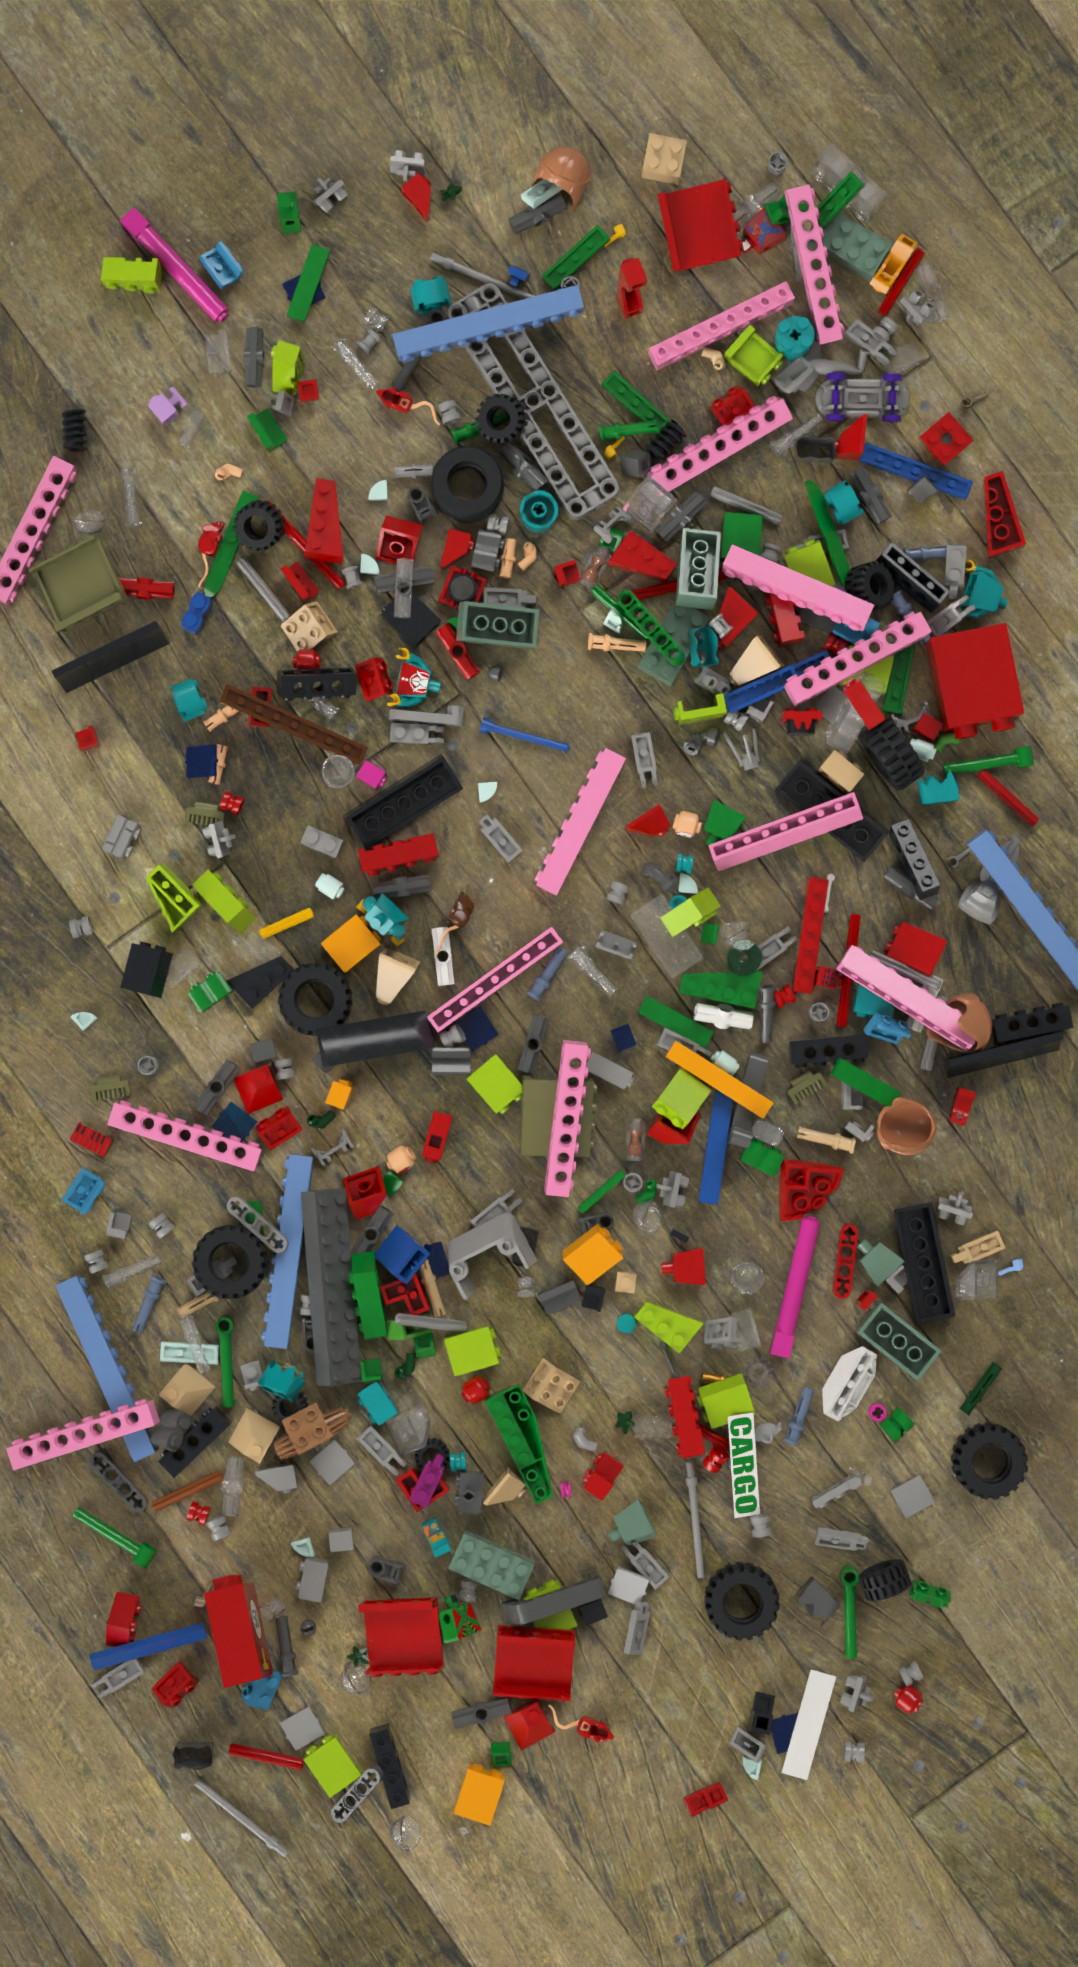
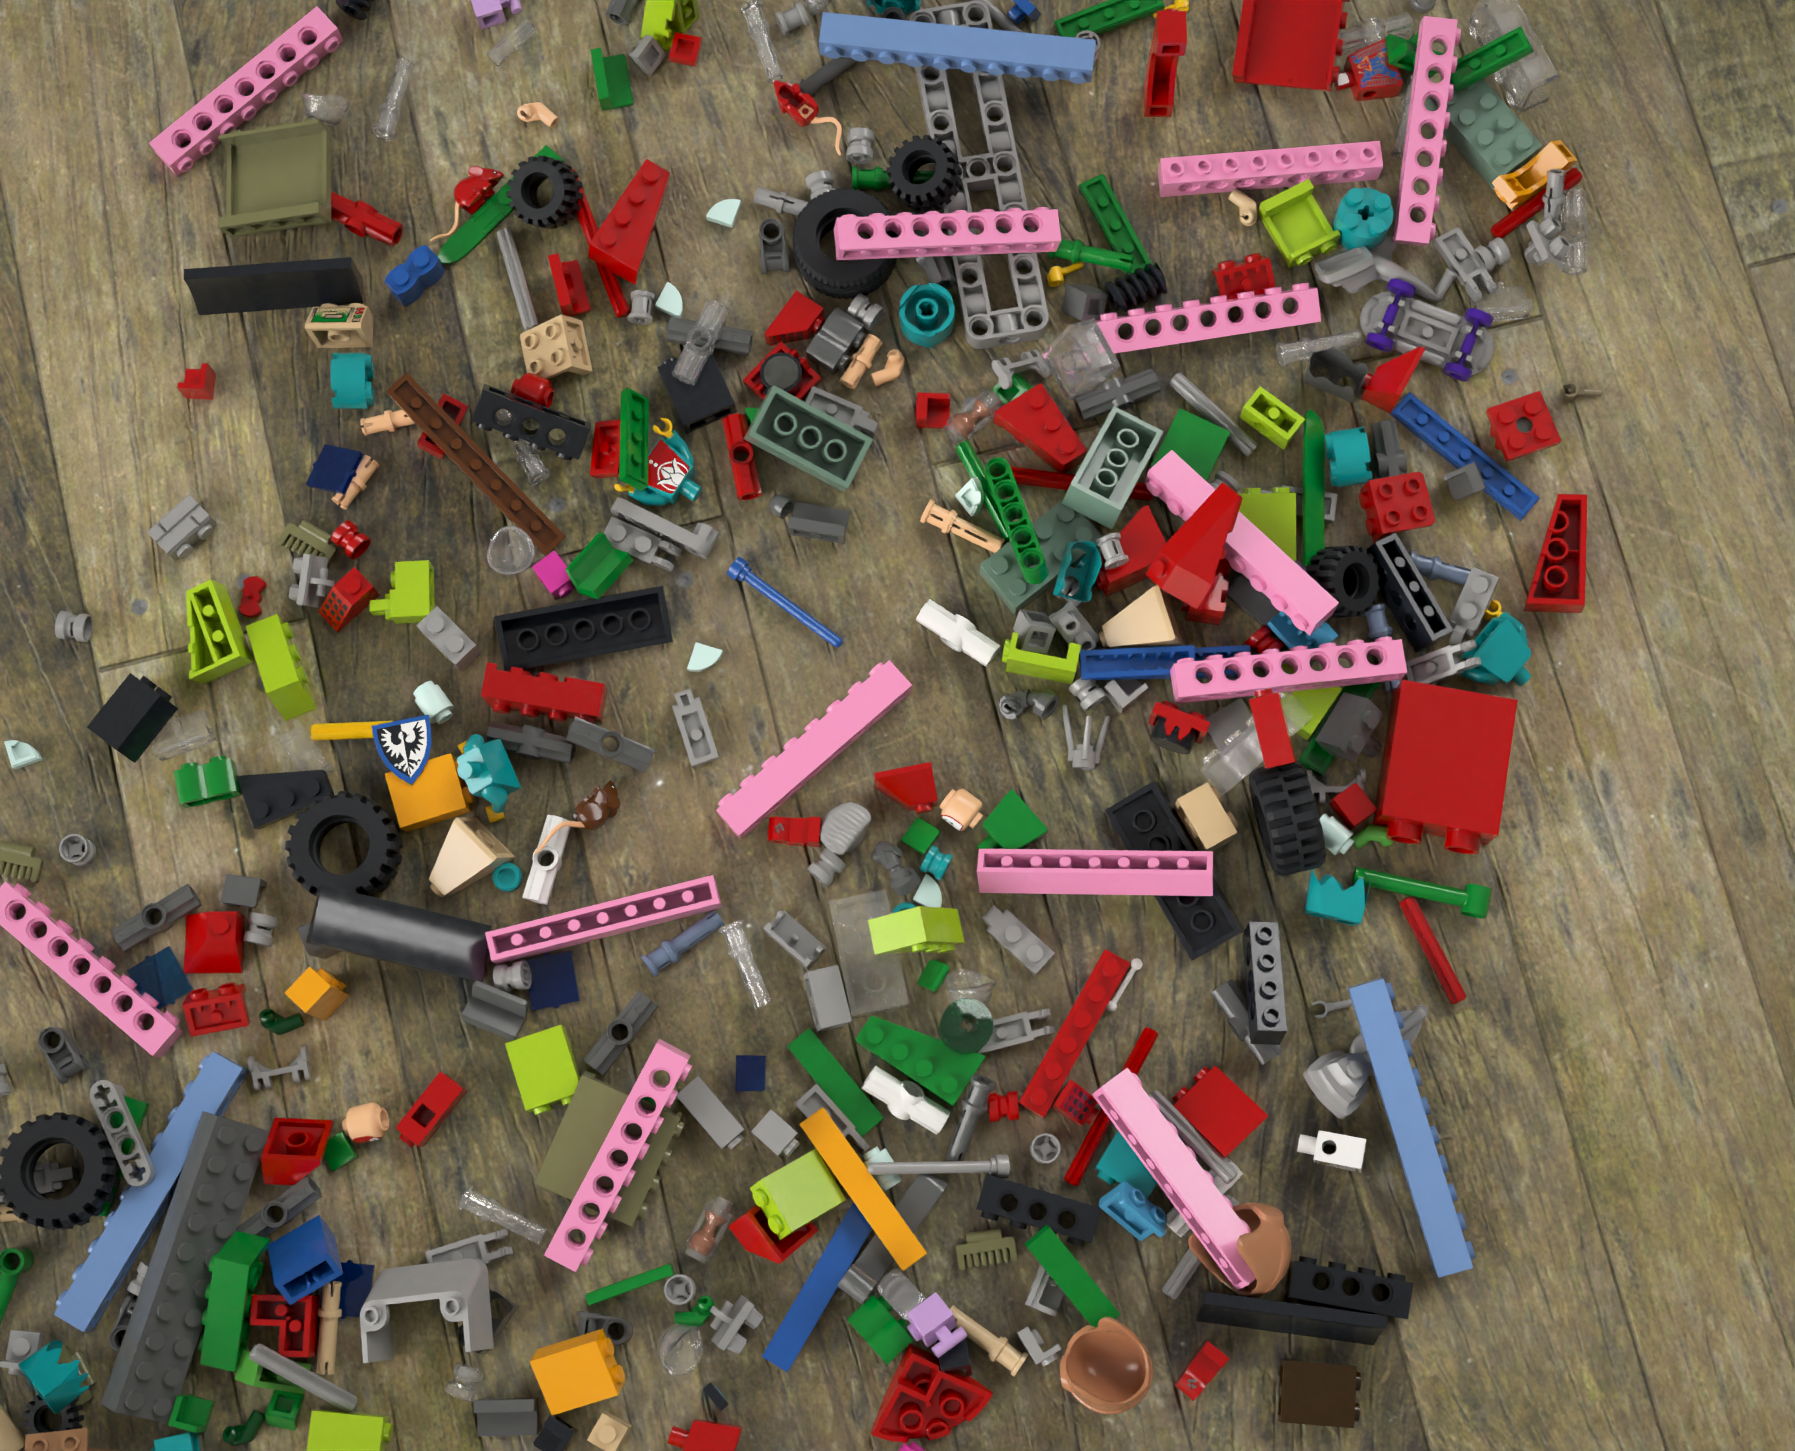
camera: 30 degrees right, 10 degrees down
(164, 665) = (340, 326): none -> tan slope
(184, 864) = (252, 596): none -> red piece
(197, 1192) = (66, 1057): none -> dark grey piece
(246, 842) = (347, 599): none -> red slope
(287, 821) = (412, 593): none -> lime hinge
(326, 921) = (404, 746): none -> shield
(386, 668) = (634, 439): none -> green tile
(397, 760) = (597, 567): none -> green panel
(398, 540) = (725, 279): red slope -> none
(422, 976) = (507, 877): none -> teal tile
(434, 450) = (819, 182): none -> light grey wheel
(464, 869) = (627, 752): none -> dark grey piece
(476, 488) = (935, 243): none -> bright pink brick
(497, 1181) = (489, 1209): none -> clear pin
(523, 674) = (818, 522): none -> dark grey panel
(589, 878) = (795, 831): none -> red leg
(619, 864) = (845, 827): none -> light grey hair
(640, 712) = (958, 633): none -> white piece
(644, 757) = (939, 695): light grey hinge -> none
(650, 973) = (827, 998): none -> light grey hinge
(654, 1068) = (777, 1134): none -> light grey brick
(667, 850) = (921, 836): none -> green slope
(688, 693) = (1034, 631): none -> light grey brick
(752, 891) = (1017, 939): none -> light grey hinge
(772, 609) = (1191, 556): none -> red wedge
(785, 495) = (1272, 418): none -> lime brick
(793, 1034) = (997, 1166): none -> light grey piece
(793, 1140) = (933, 1322): none -> lavender brick
(811, 1154) = (956, 1358): none -> black panel
(885, 522) = (1396, 505): none -> red bracket
(909, 679) = (1350, 728): none -> dark grey brick
(911, 275) = (1554, 194): none -> light grey pin
(1002, 941) = (1348, 1153): none -> white torso
(1036, 1092) = (1318, 1393): none -> dark brown panel

